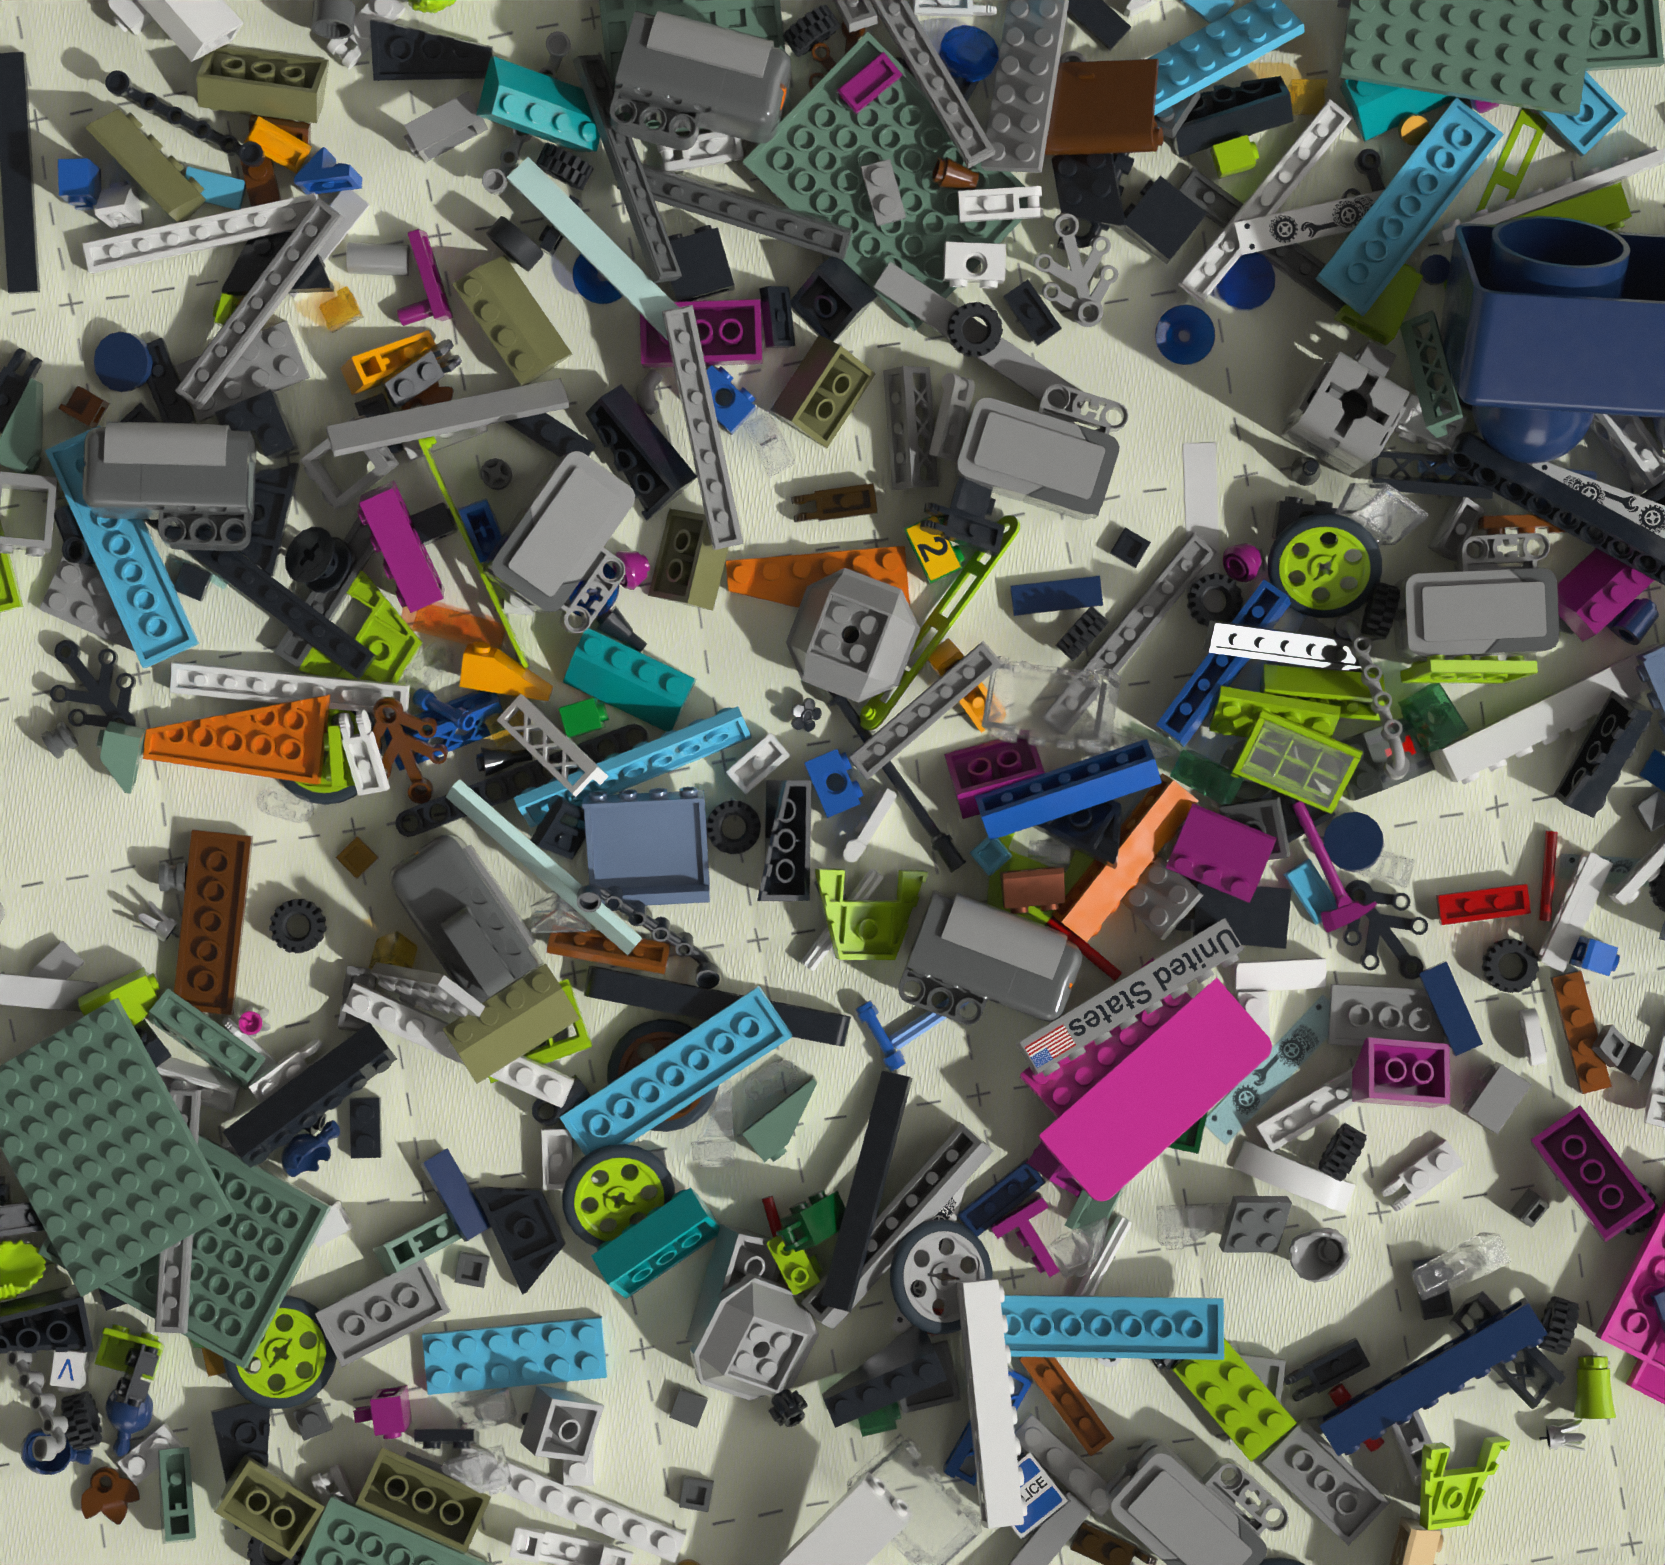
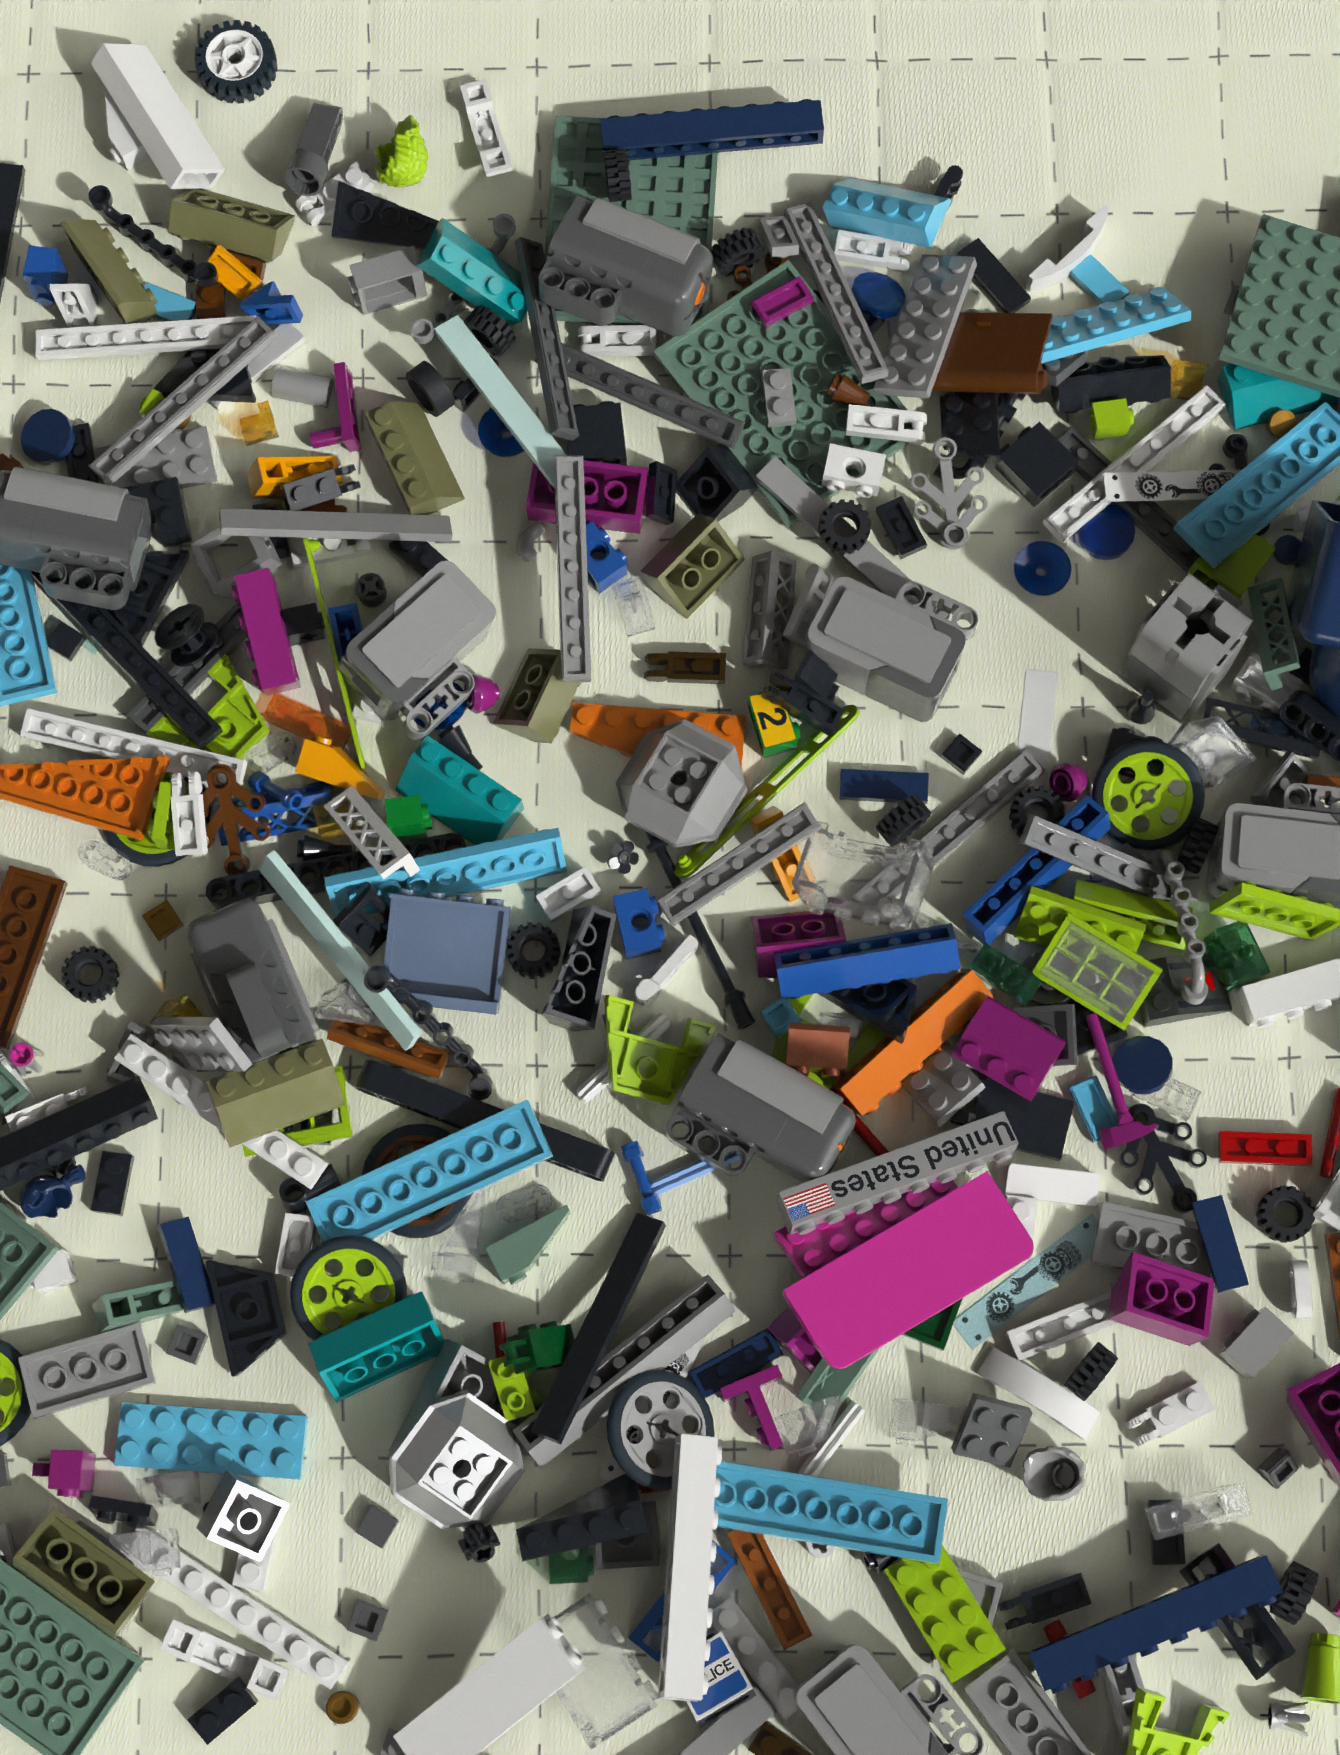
camera: 15 degrees right, 15 degrees down
(640, 450) = (520, 603): black wedge -> none

